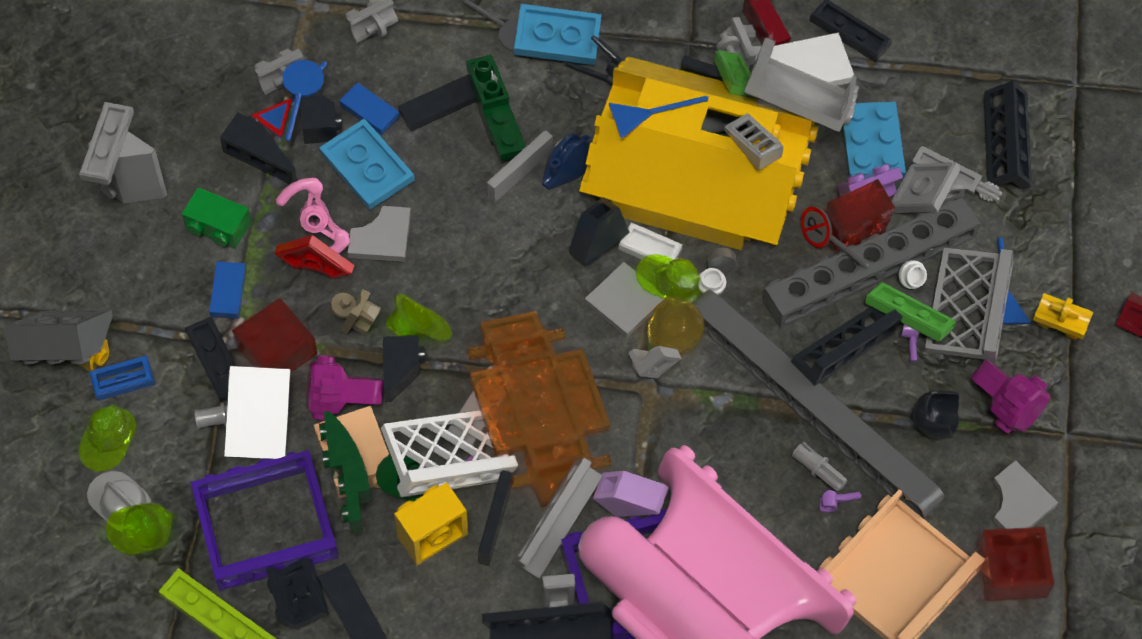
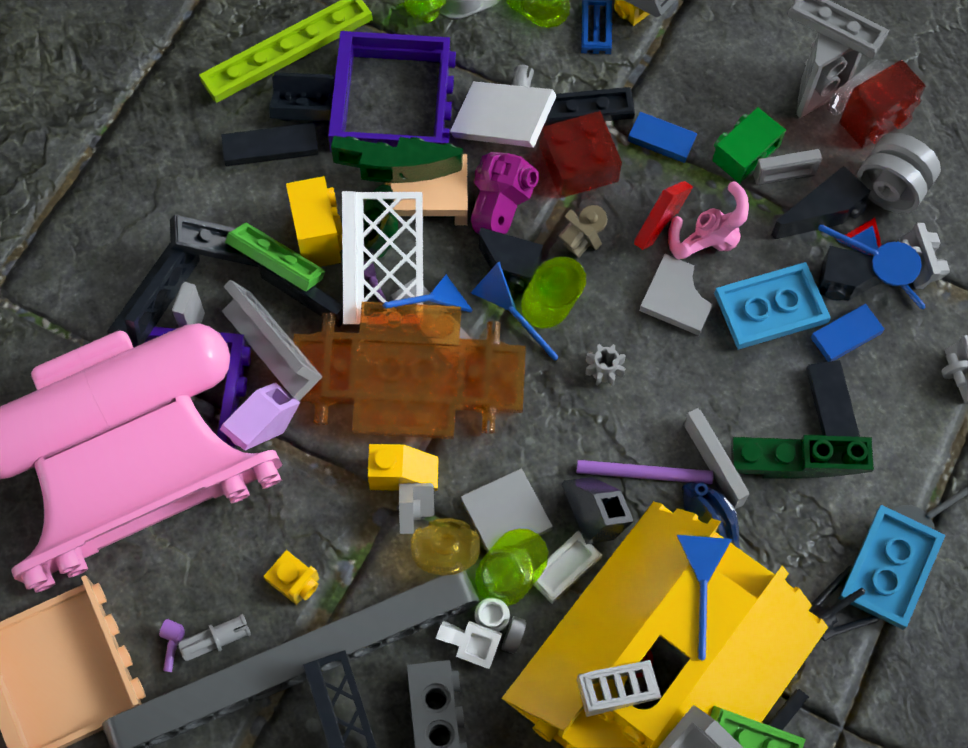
camera: 110 degrees right, 5 degrees up
(152, 120) = (882, 104): none -> clear red brick
(213, 95) = (899, 172): none -> light grey wheel
(227, 181) = (787, 166): none -> light grey tile
(433, 364) = (495, 290): none -> blue piece
(454, 403) = (444, 294): none -> blue piece
(470, 264) = (602, 372): none -> light grey gear
(478, 540) = (275, 256): none -> bright green tile
(480, 597) = (204, 239): none -> black tile
(549, 216) = (644, 472): none -> medium lavender piece
(625, 385) = (398, 465): none -> yellow slope
(742, 284) = (475, 644): none -> white plate
(747, 429) = (292, 578): none -> yellow bracket

